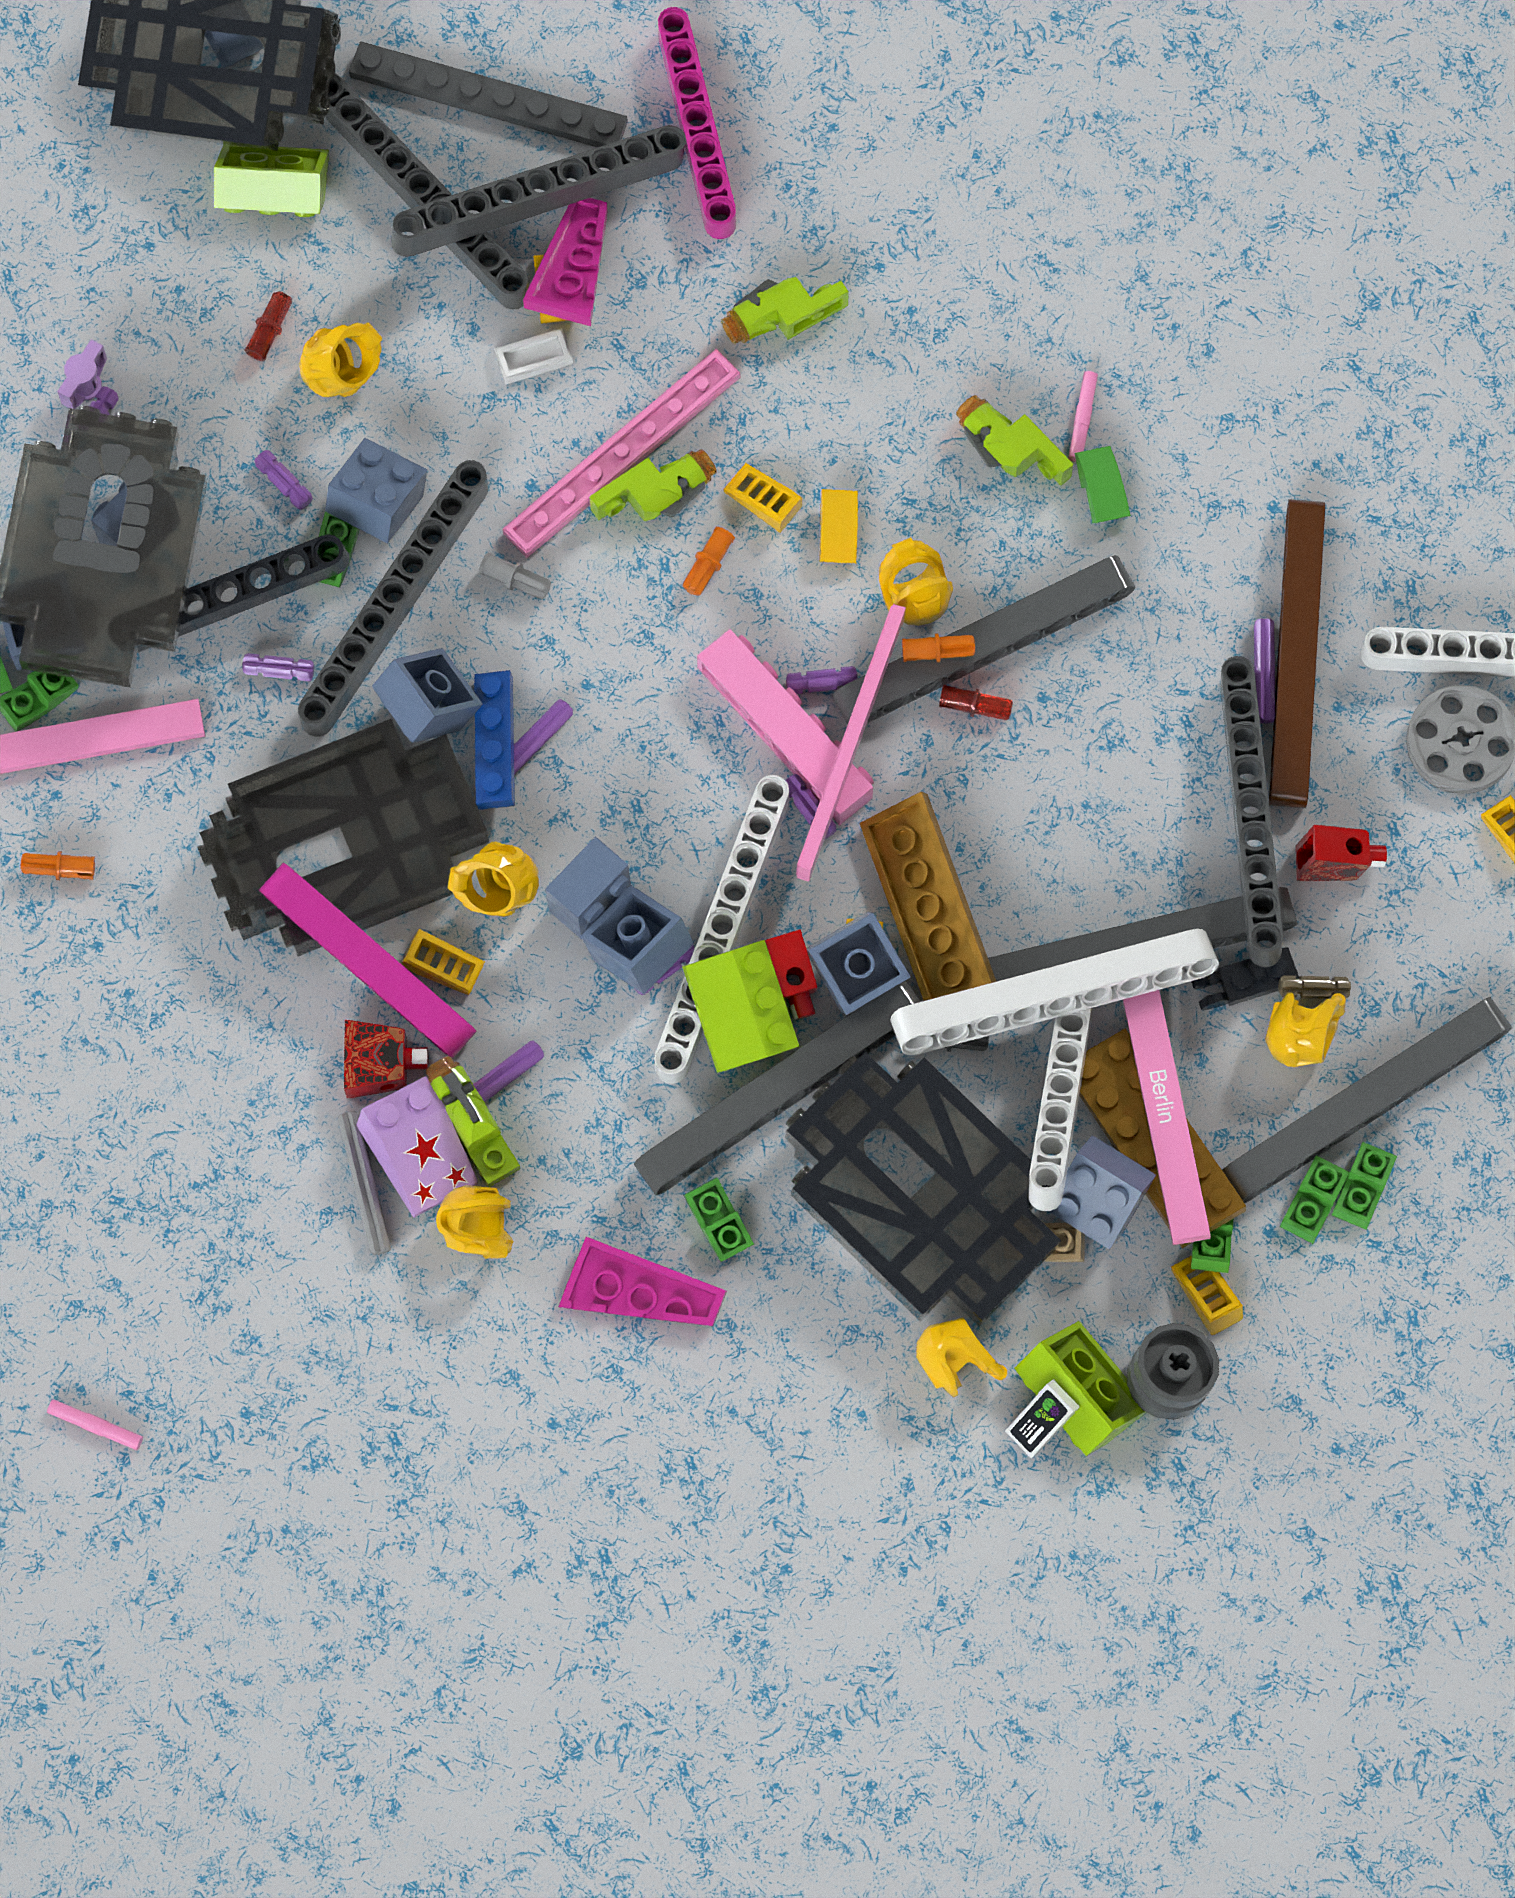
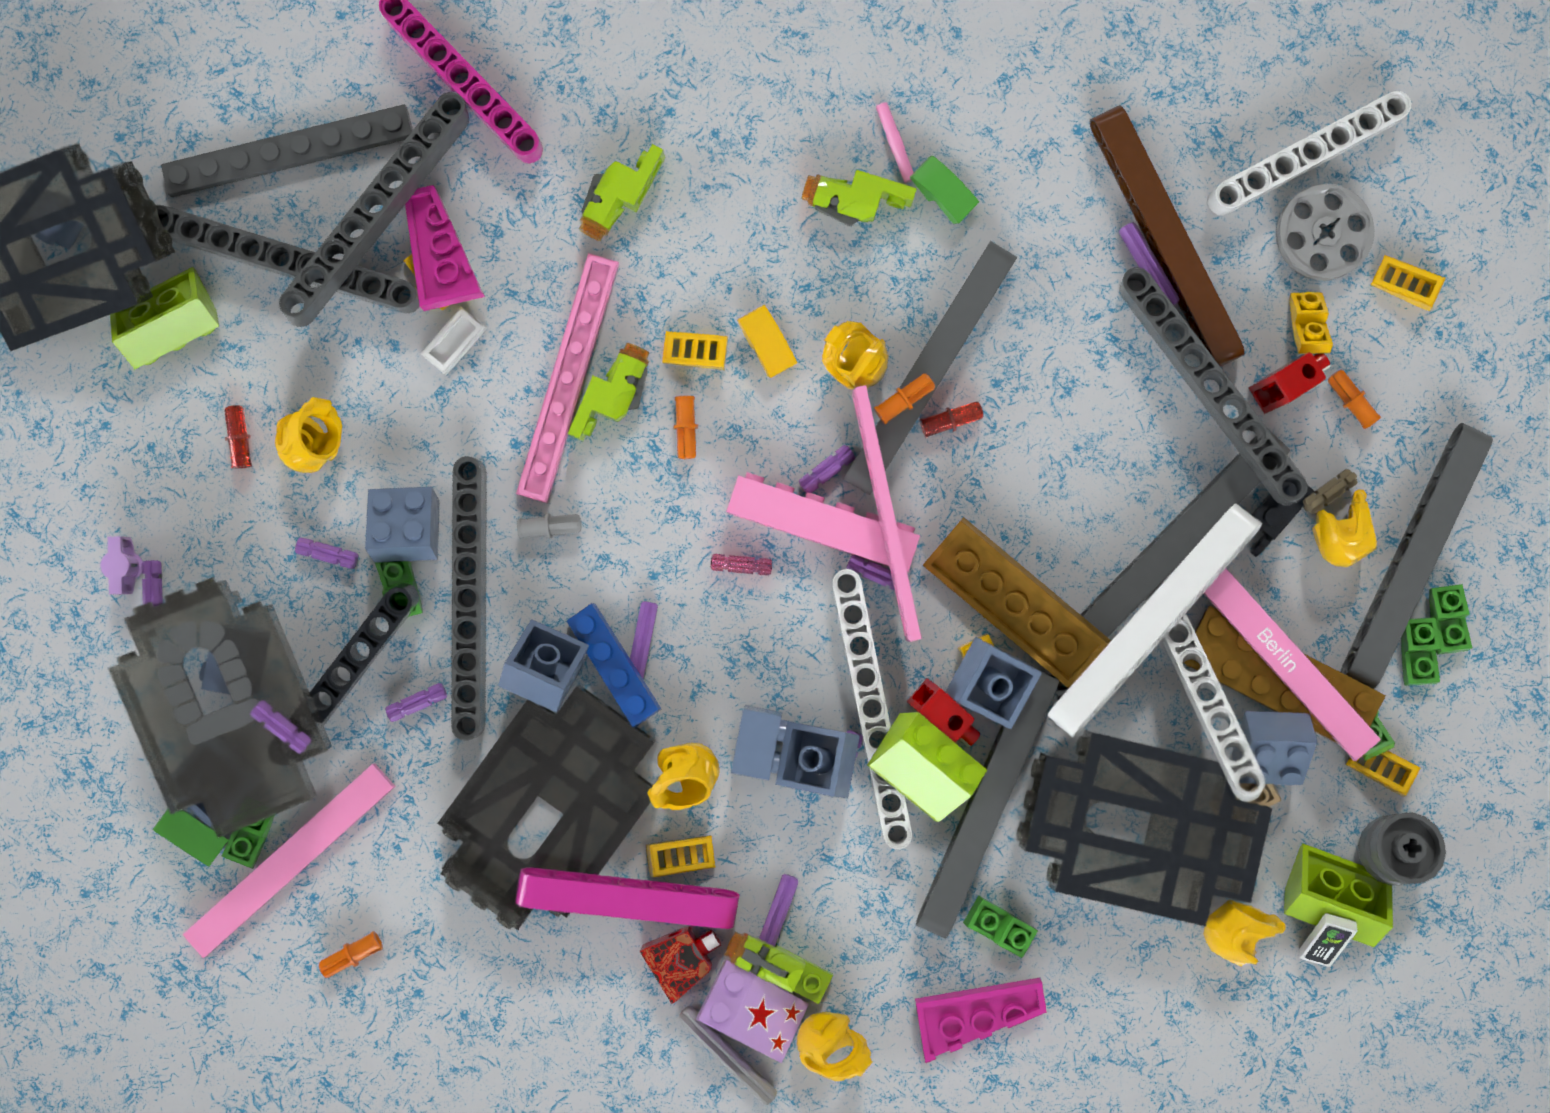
camera: 30 degrees left, 15 degrees up
(146, 591) = (280, 726): none -> medium lavender axle
(680, 721) = (741, 564): none -> clear pink axle
(1393, 813) = (1309, 322): none -> yellow slope
(1394, 914) = (1353, 399): none -> orange axle

